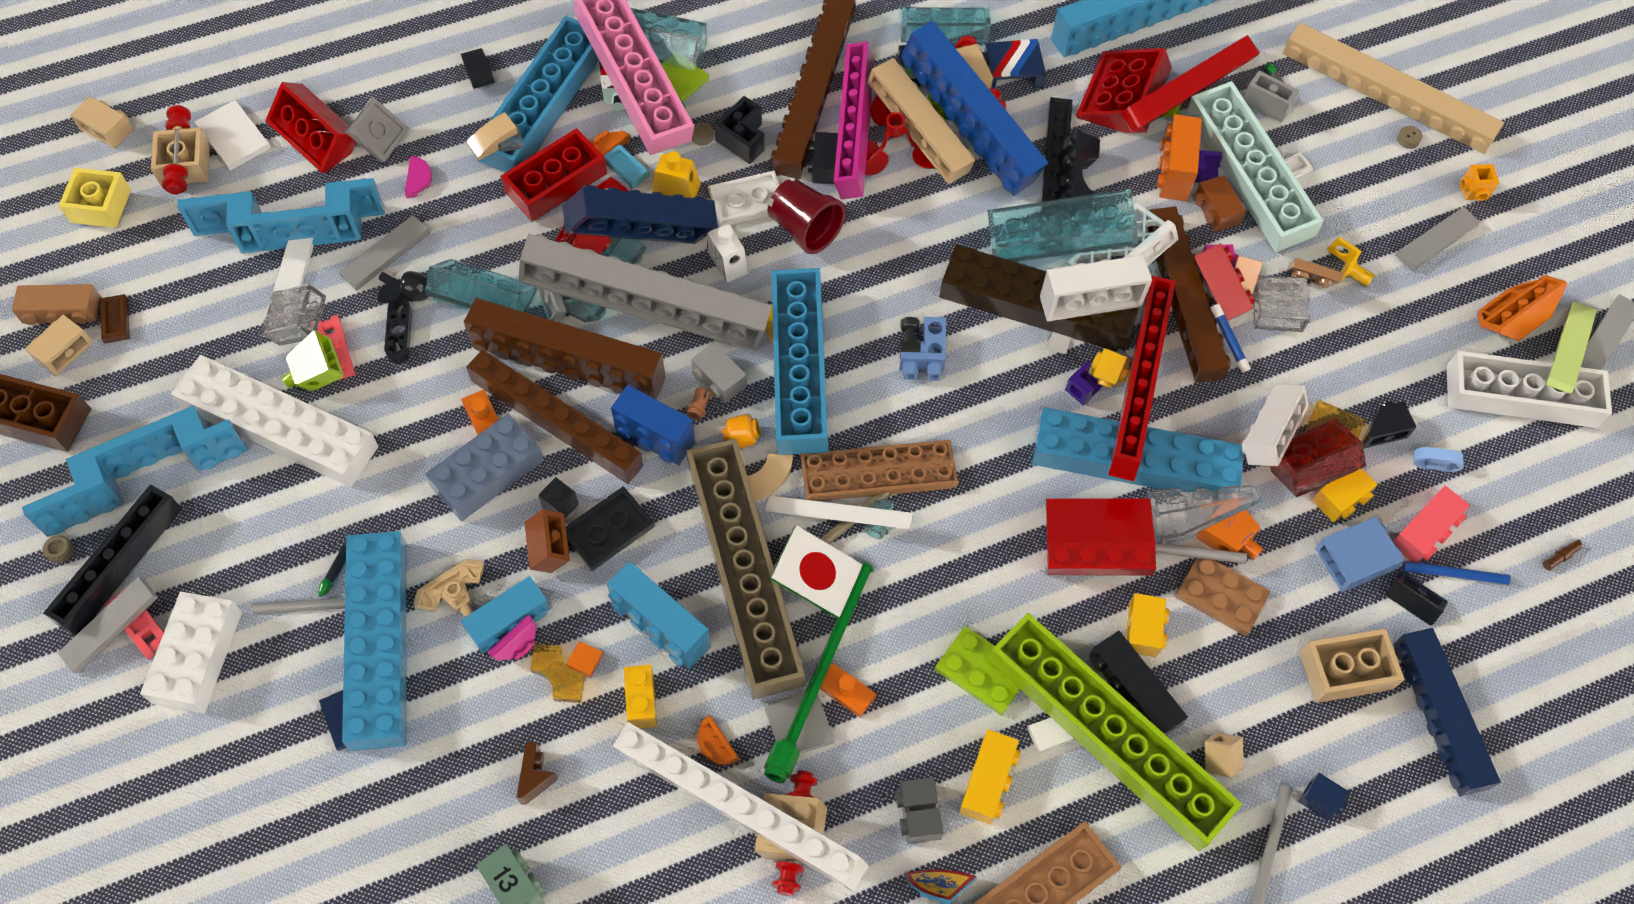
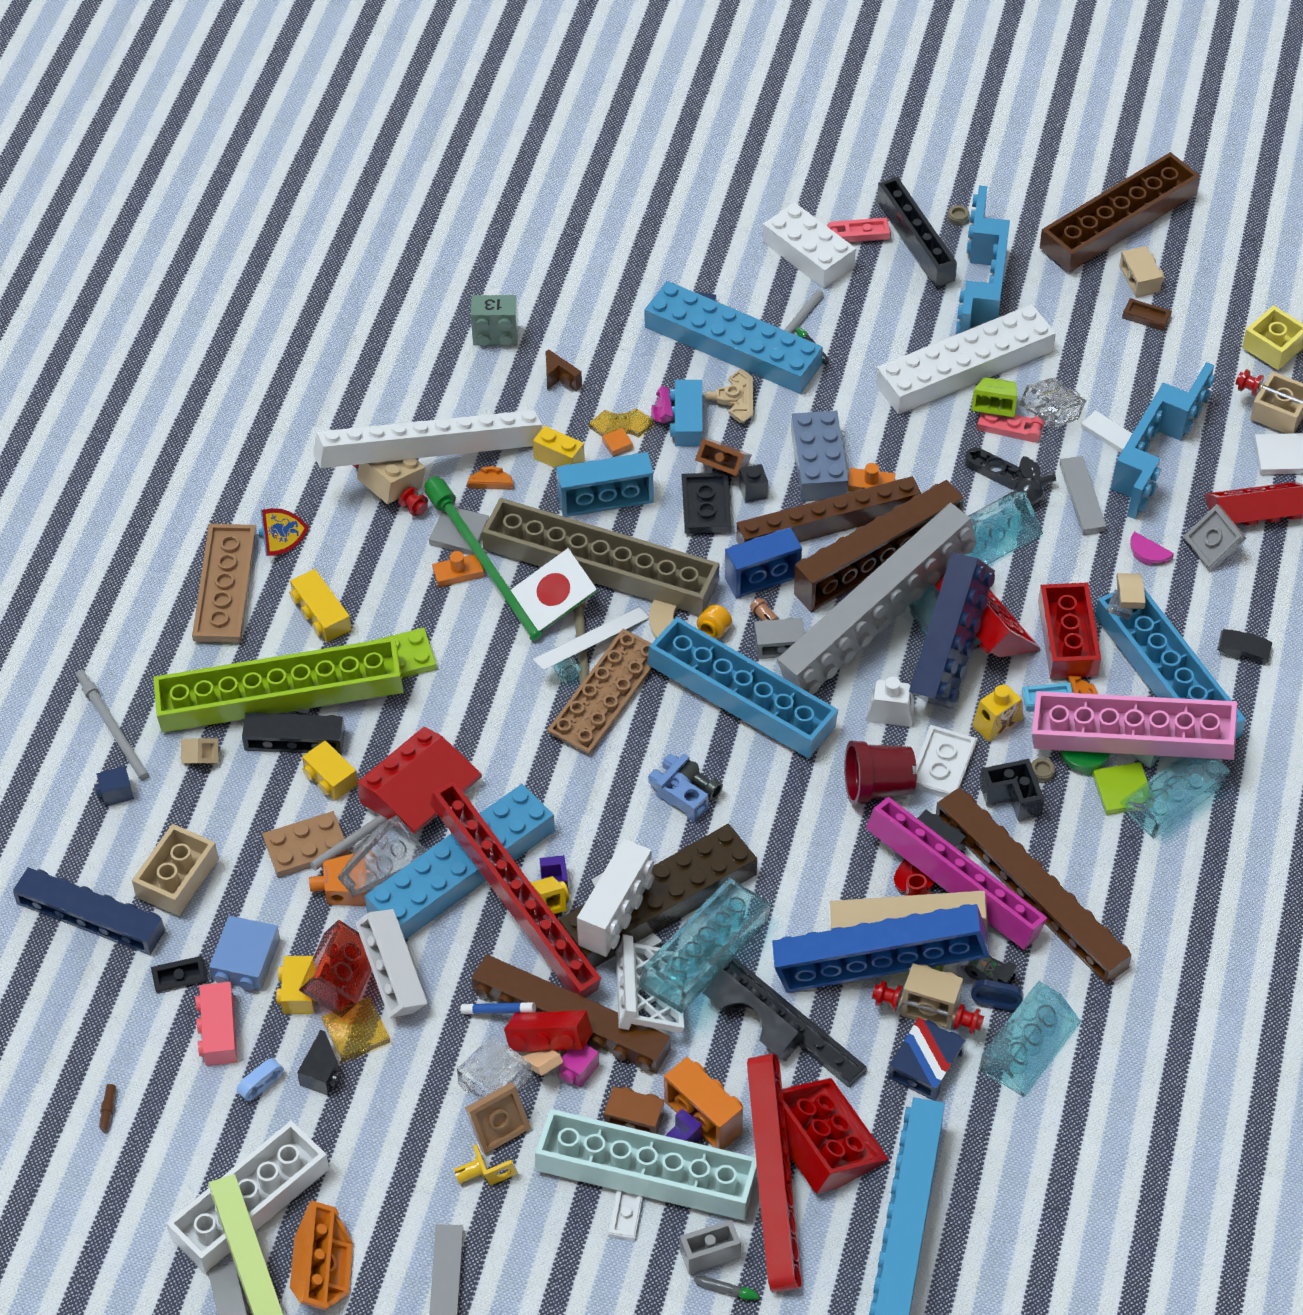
camera: 130 degrees right, 10 degrees down
(49, 302) = (1183, 283): medium nougat brick -> none
(107, 625) = (866, 211): light grey tile -> none
(920, 816) = (336, 555): dark grey piece -> none
(1456, 572) = (162, 1021): blue bar -> none

